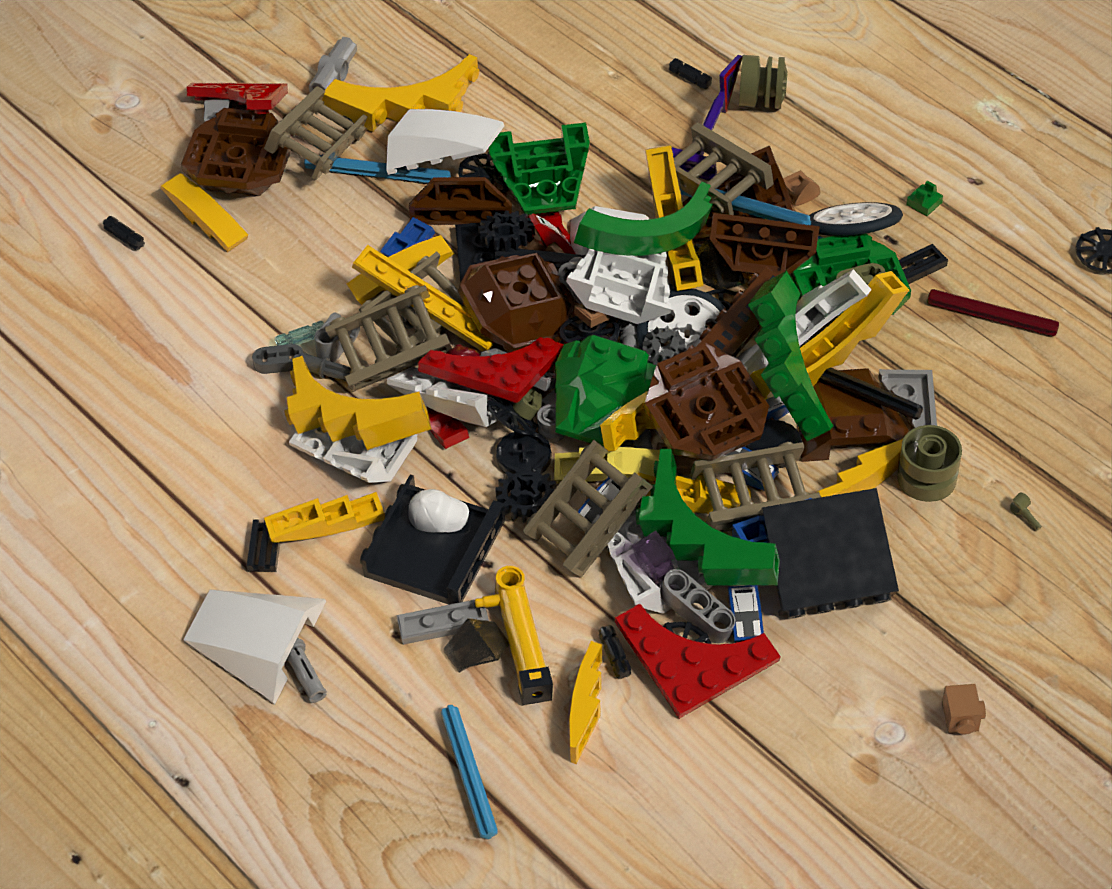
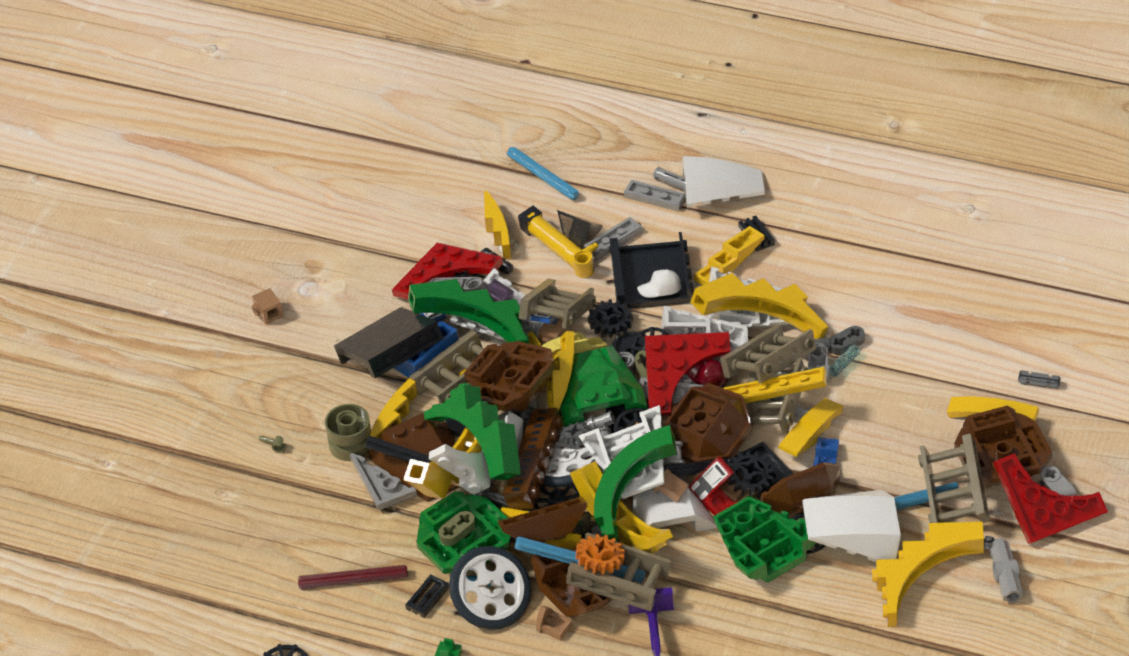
camera: 155 degrees right, 5 degrees down
(345, 665) = (654, 195): none -> light grey tile
(729, 166) = (600, 554): none -> orange gear

